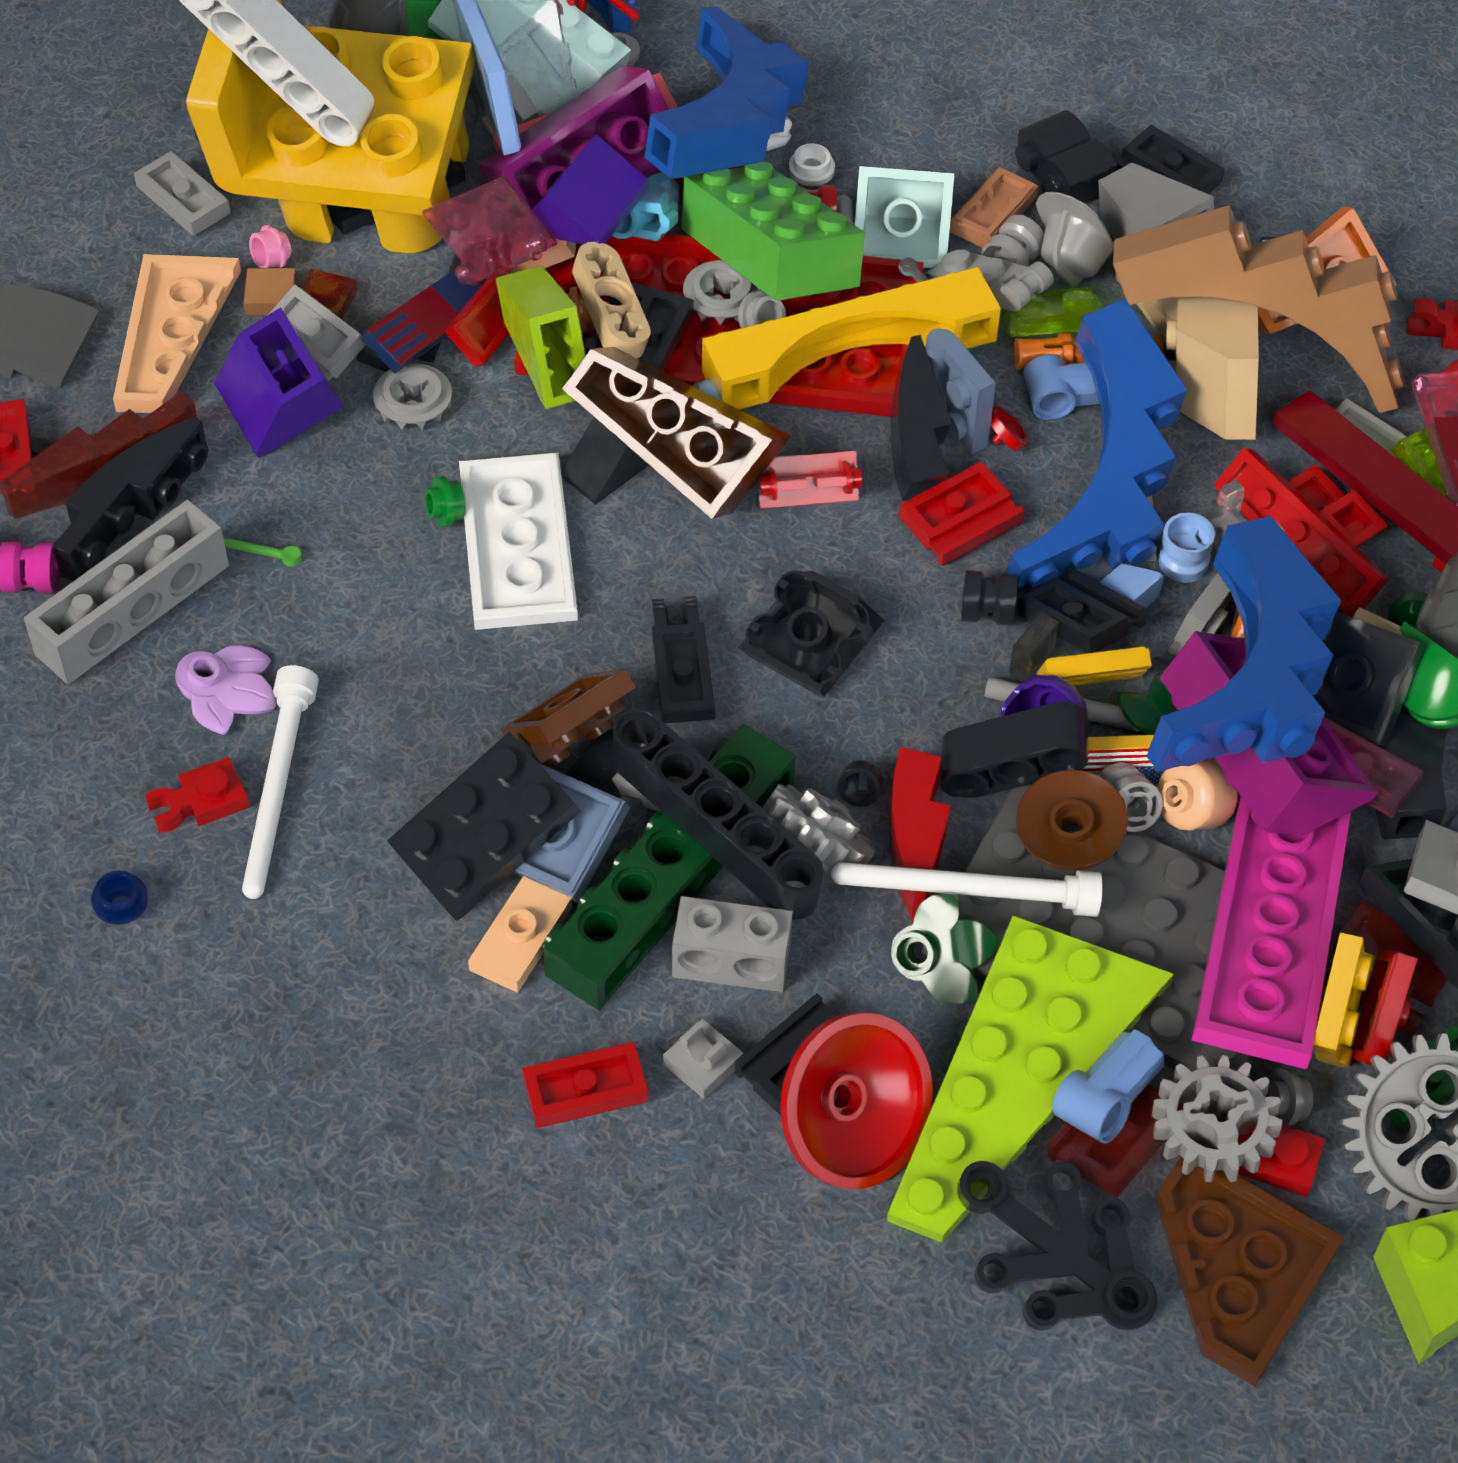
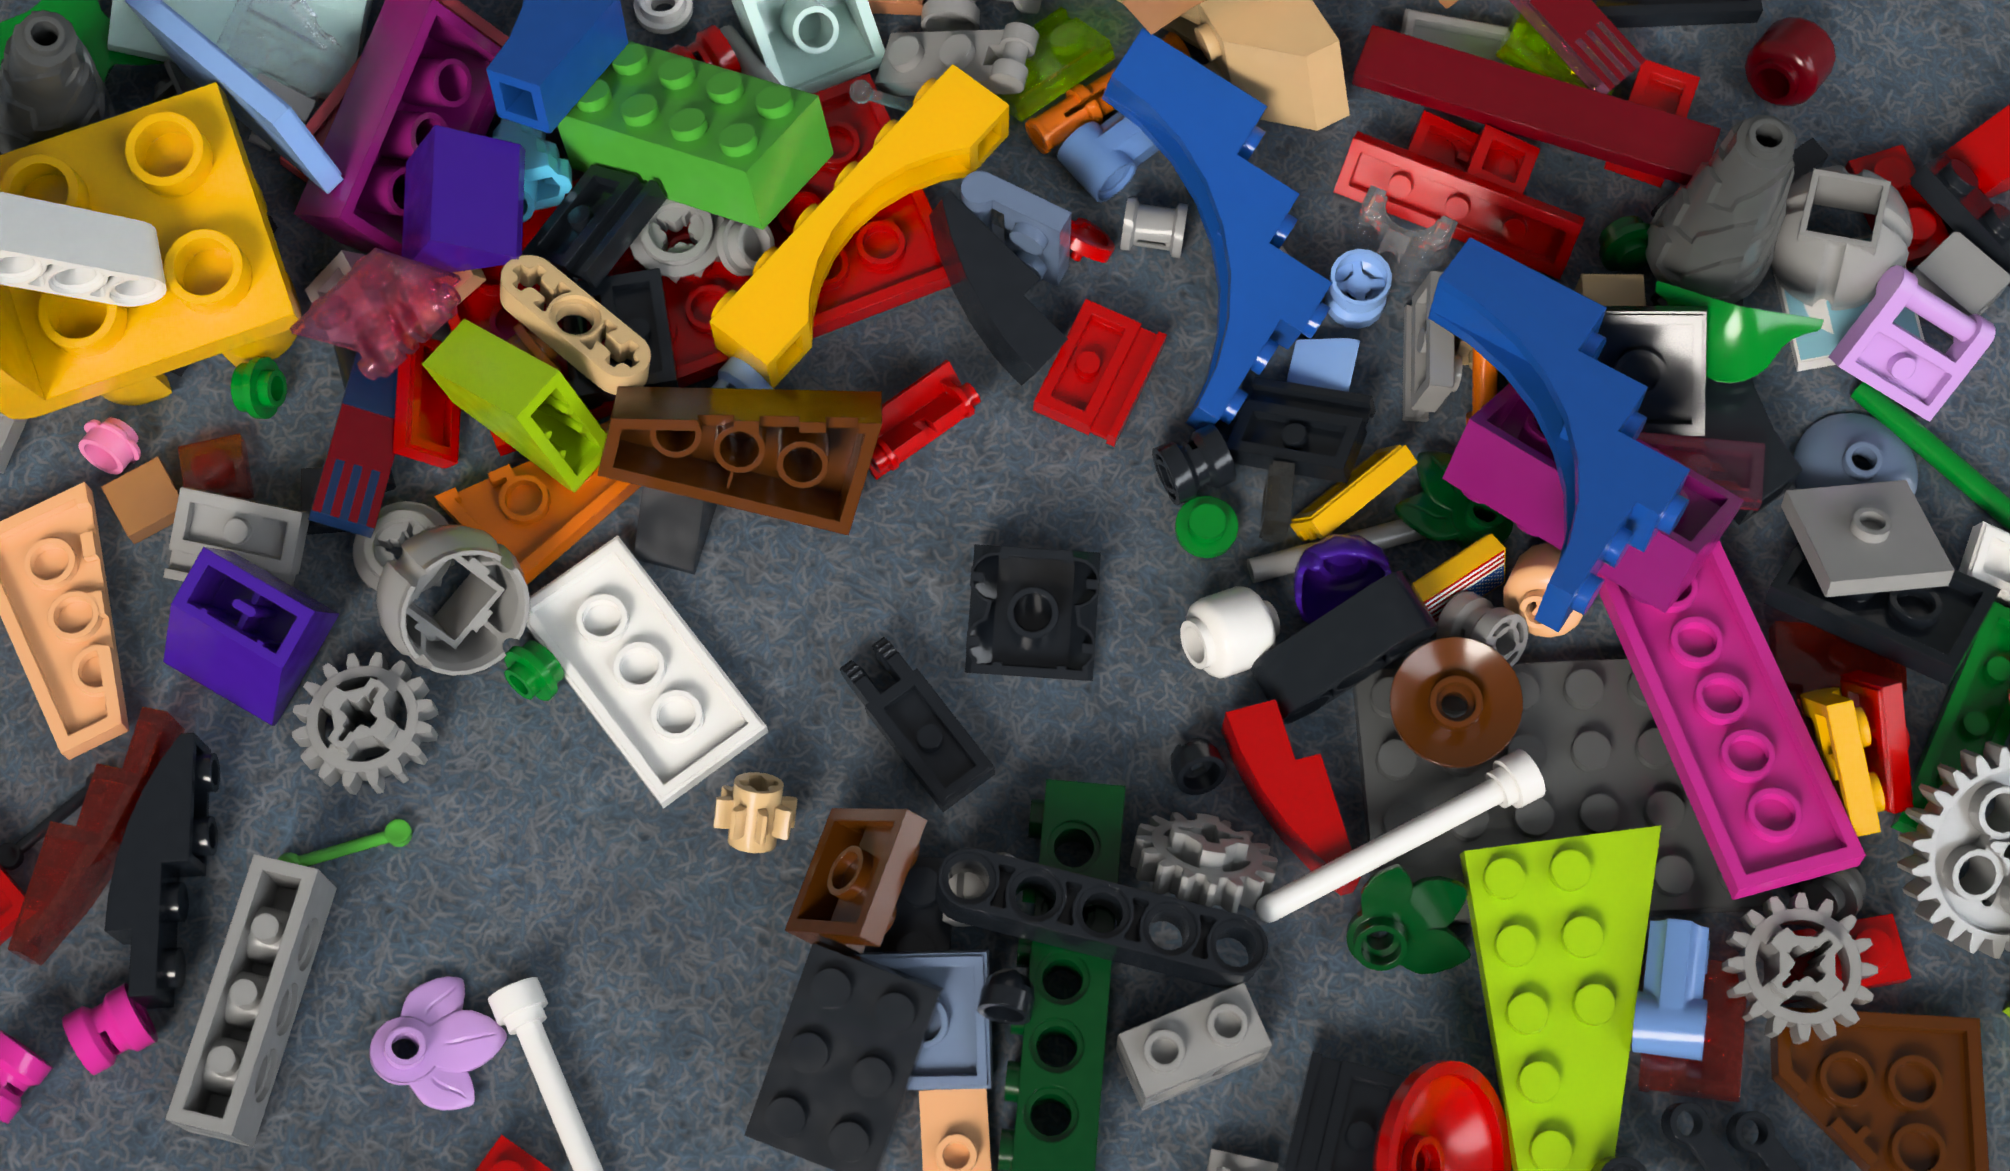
camera: 30 degrees left, 15 degrees up
(315, 477) = (352, 745): none -> light grey gear
(386, 259) = (258, 387): none -> green plate
(425, 456) = (477, 617): none -> light grey piece
(510, 415) = (534, 511): none -> orange wing
(531, 652) = (755, 812): none -> tan gear
(618, 834) = (1007, 997): none -> black hinge
(670, 256) = (596, 224): none -> black plate
(940, 705) = (1229, 631): none -> white head
(972, 643) = (1206, 527): none -> green plate
(1063, 444) = (1154, 227): none -> light grey bush

